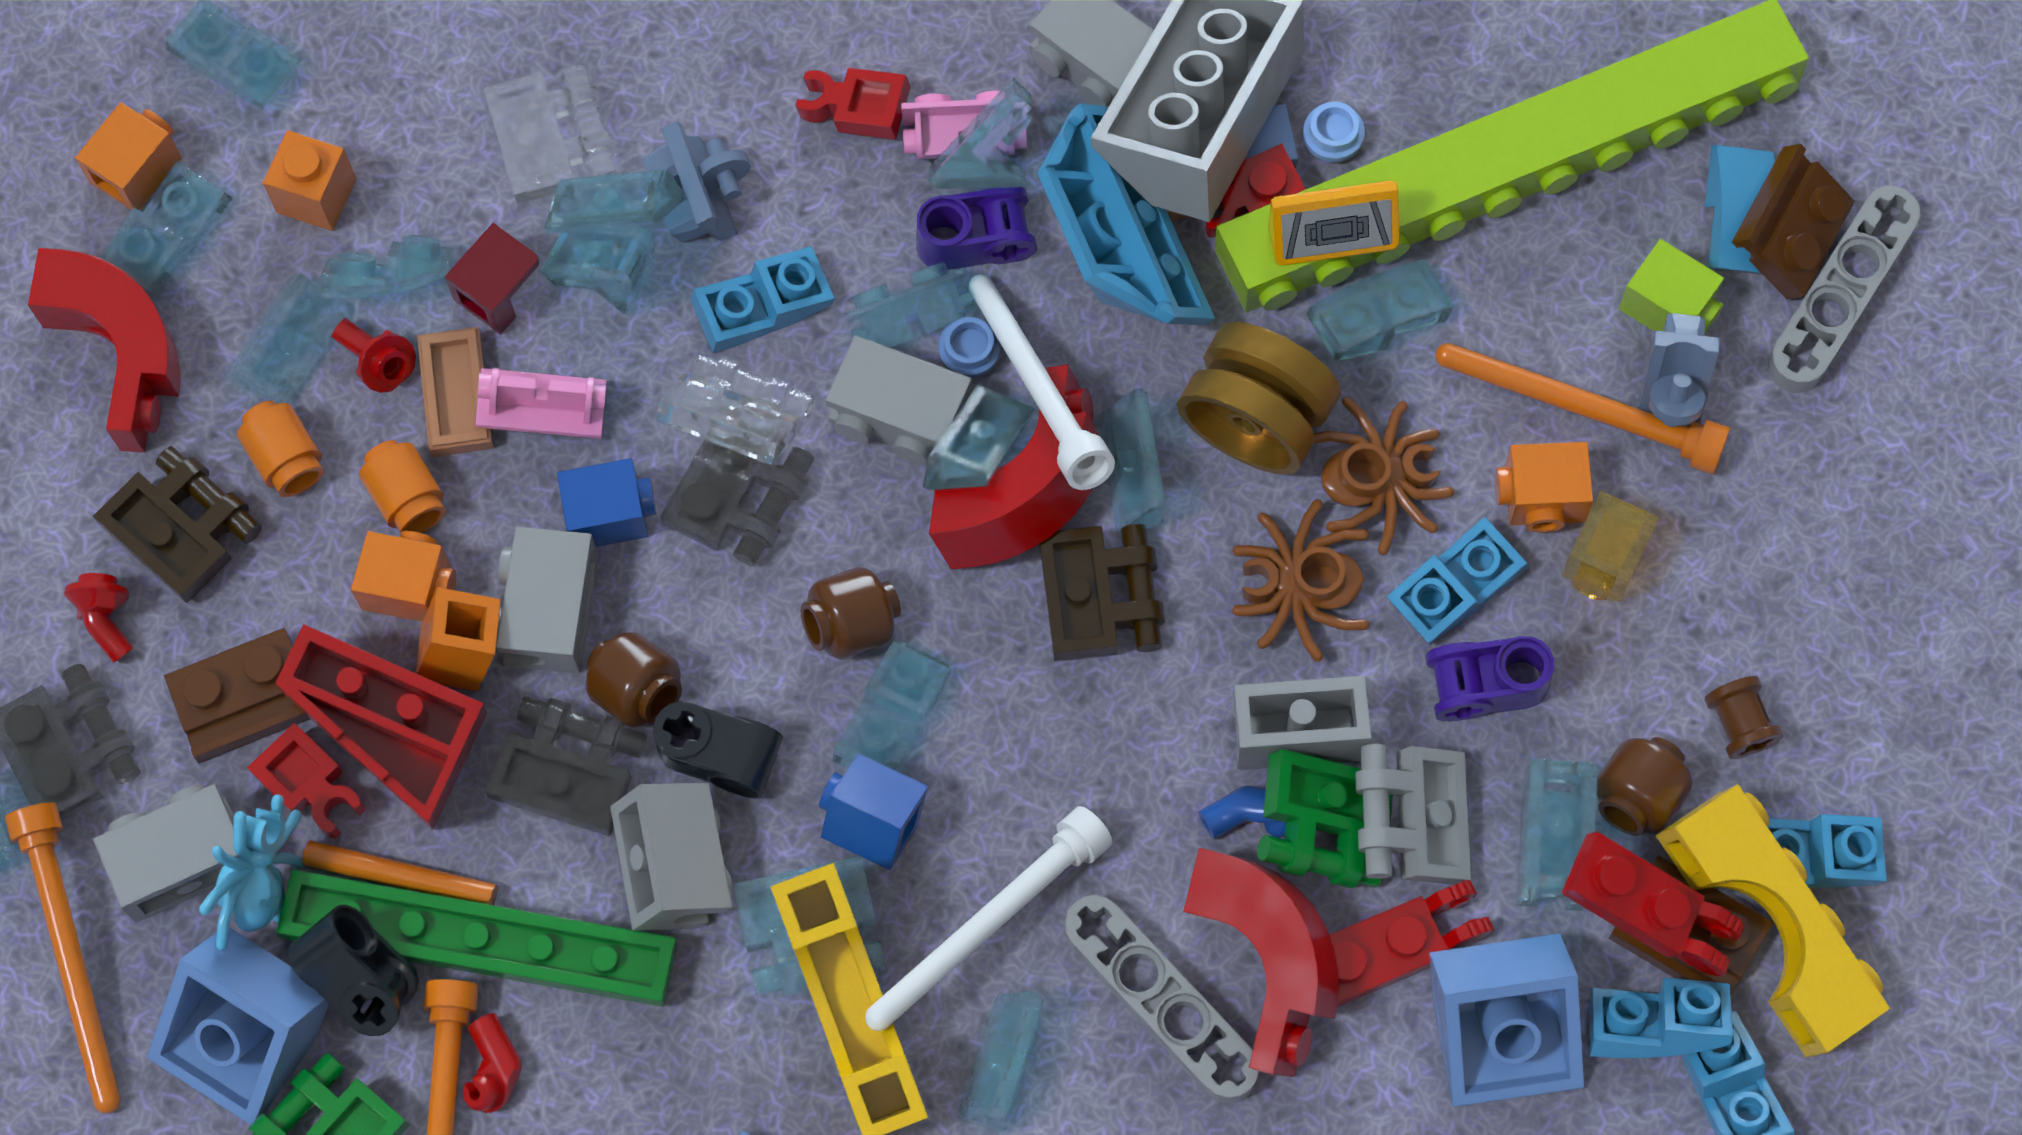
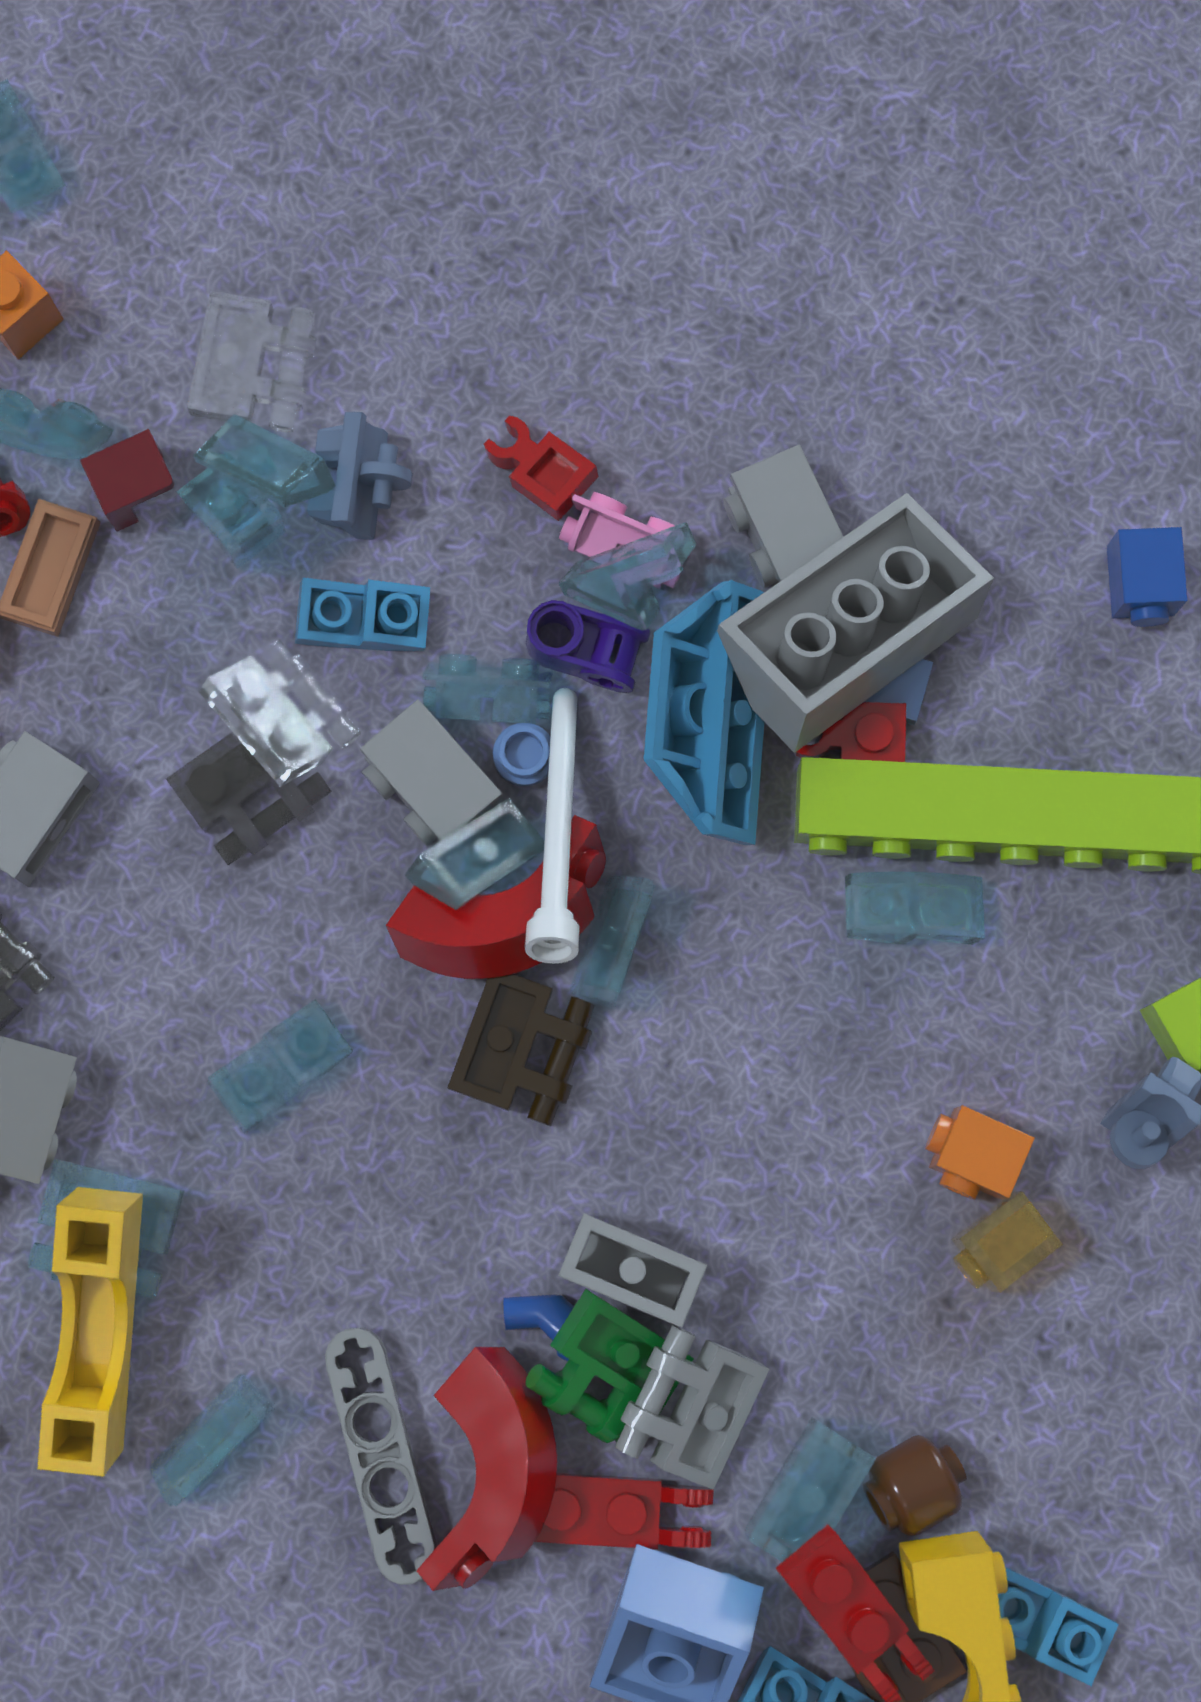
camera: 25 degrees right, 10 degrees up
(540, 403) = (114, 617): bright pink hinge -> none
(607, 501) = (121, 743): blue brick -> none
(632, 679) = (63, 922): reddish brown head -> none
(727, 749) = (113, 1031): black piece -> none
(850, 613) = (286, 957): reddish brown head -> none
(872, 810) = (209, 1154): blue brick -> none
(1079, 840) = (378, 1273): white piece -> none
(1259, 398) = (760, 939): pearl gold wheel -> none
(1302, 580) = (710, 1129): dark orange animal -> none
(1333, 132) = (964, 710): light blue plate -> none
(1334, 223) = (908, 814): slope -> none
(1379, 474) = (832, 1062): dark orange animal -> none
(1458, 581) = (850, 1200): dark azure slope -> none
(1484, 677) = (824, 1307): dark purple piece -> none
(1697, 442) = (1143, 1187): orange piece -> none
(1743, 717) = (1042, 1466): reddish brown bush -> none

